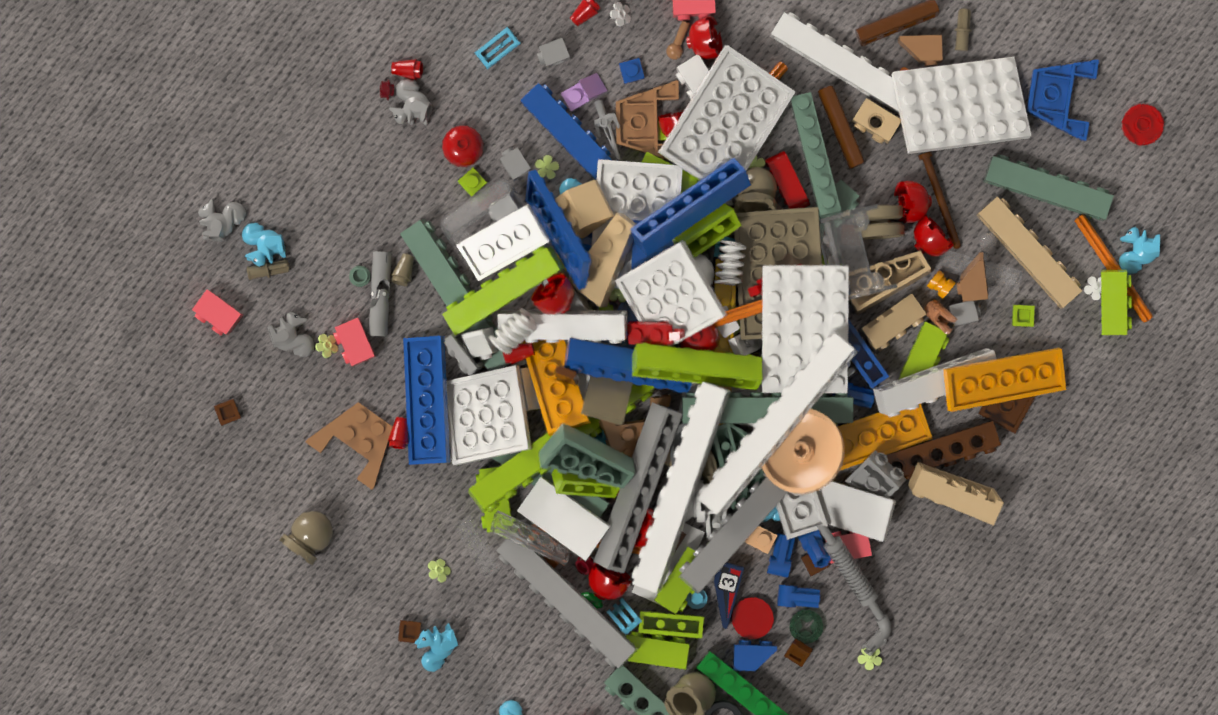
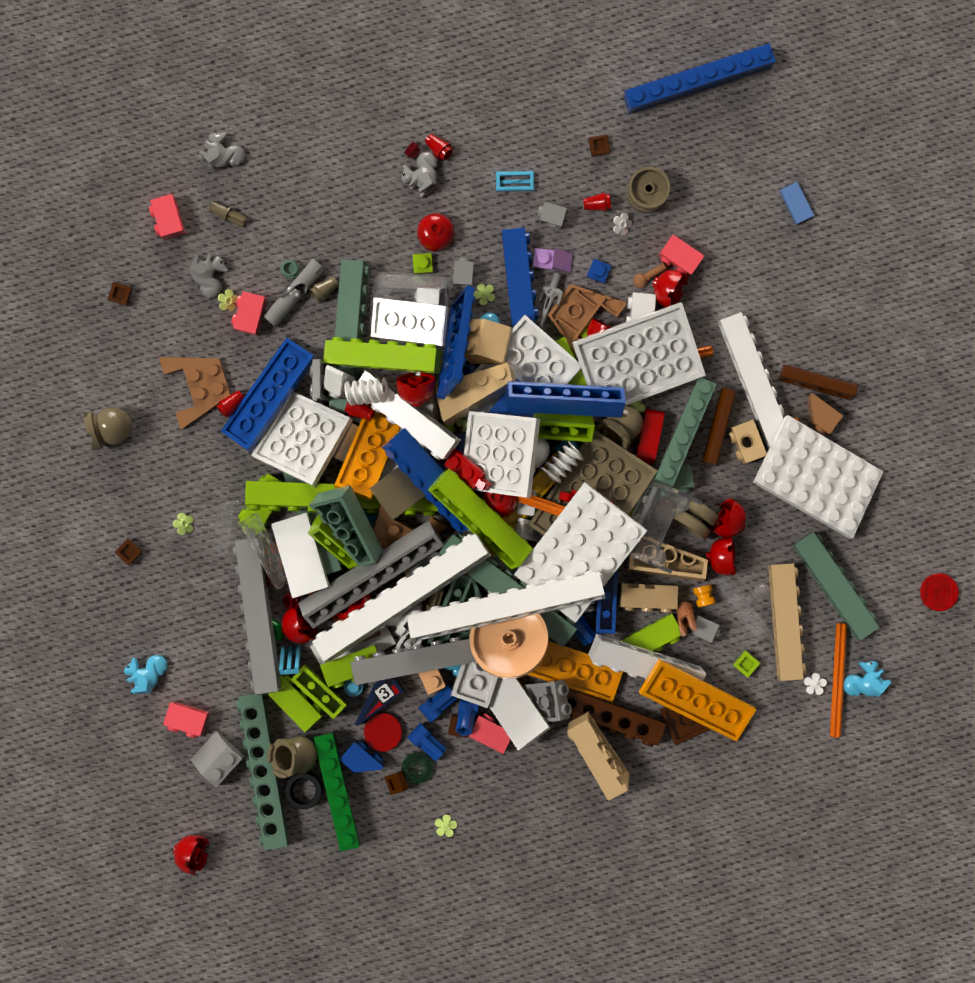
camera: 30 degrees right, 0 degrees up
(267, 243) = (242, 193): medium azure animal -> none
(441, 647) = (141, 581): medium azure animal -> none
(566, 375) = (380, 453): reddish brown tile -> none
(860, 586) = (477, 768): light grey piece -> none
(926, 157) = (751, 533): reddish brown bar -> none
(963, 29) = (861, 424): dark tan axle -> none
(974, 281) = (730, 611): medium nougat slope -> none
(1051, 95) = (889, 520): blue wing -> none
(1115, 302) = (821, 706): lime brick -> none

